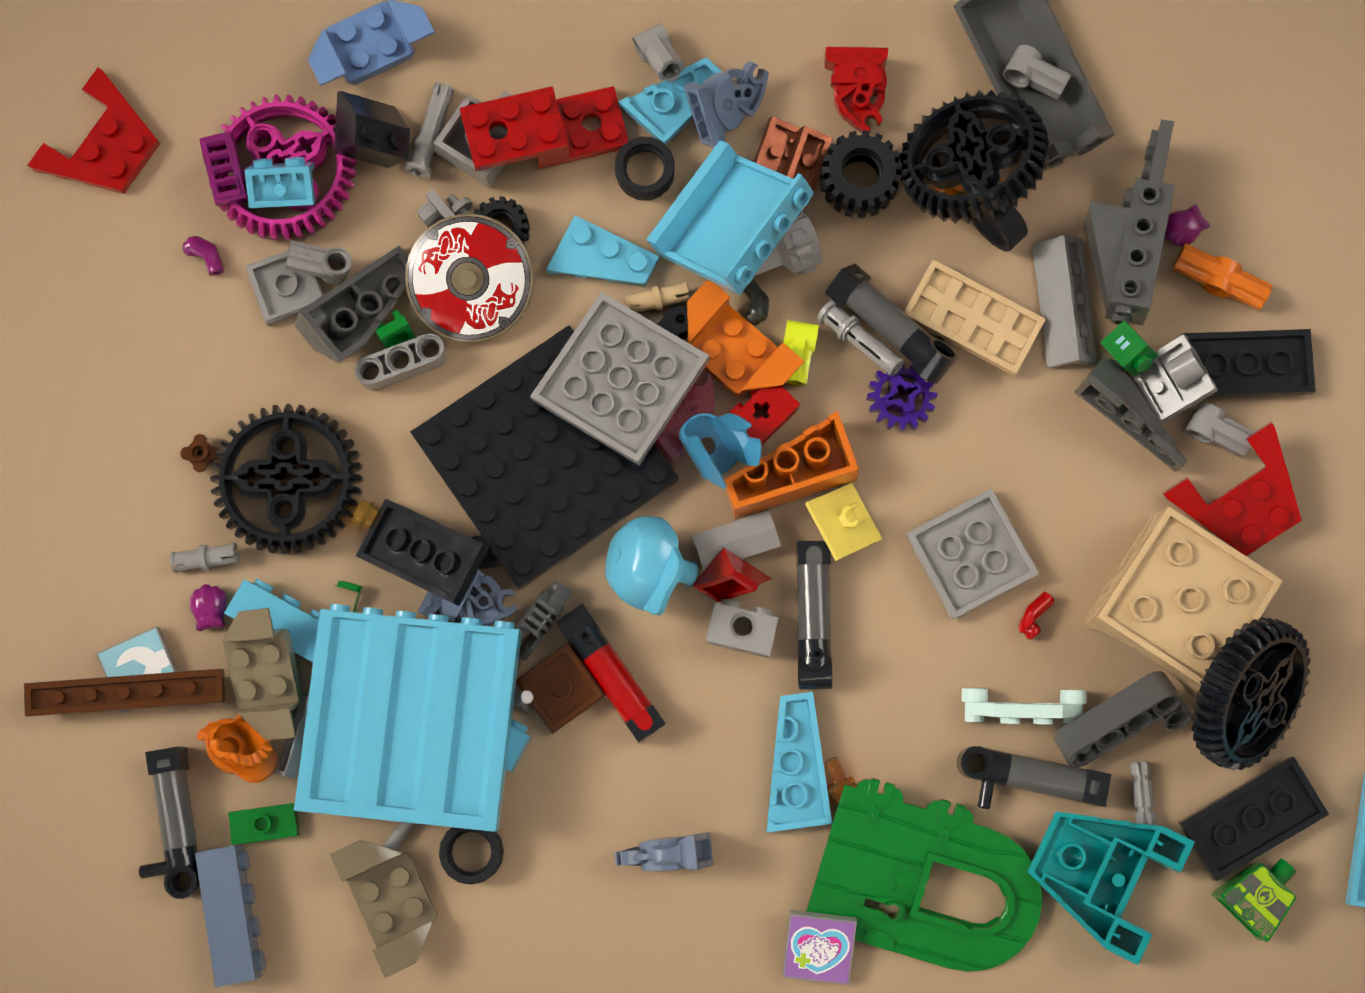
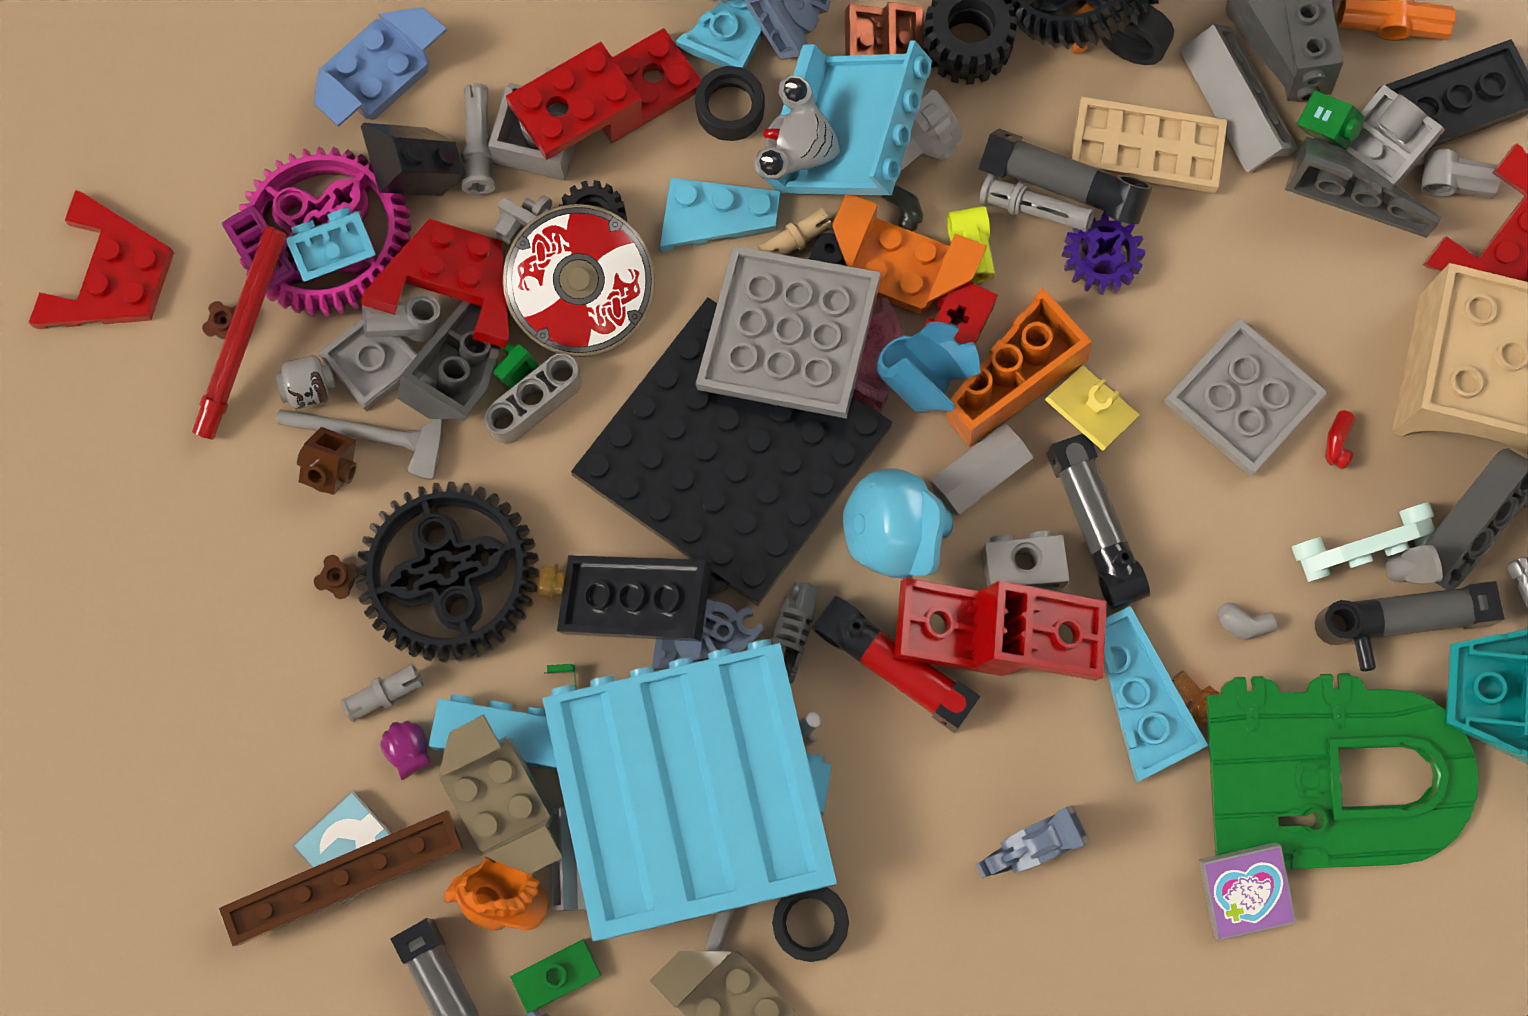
camera: 20 degrees left, 5 degrees down
(151, 279) = (215, 400): none -> red axle
(181, 224) = (217, 313): none -> copper plate
(208, 251) = (265, 350): magenta arm -> none
(222, 358) = (327, 461): none -> reddish brown brick
(226, 288) = (305, 382): none -> light grey head
(305, 368) = (425, 442): none -> light grey piece
(372, 229) = (453, 265): none -> red wing
(561, 687) = (846, 699): reddish brown plate -> none
(685, 220) = (799, 138): none -> light grey head
(701, 676) = (1001, 629): none -> red bracket
(729, 577) = (988, 512): red slope -> none
(898, 738) = (1243, 625): none -> light grey arm
(1050, 739) = (1415, 565): none -> light grey piece

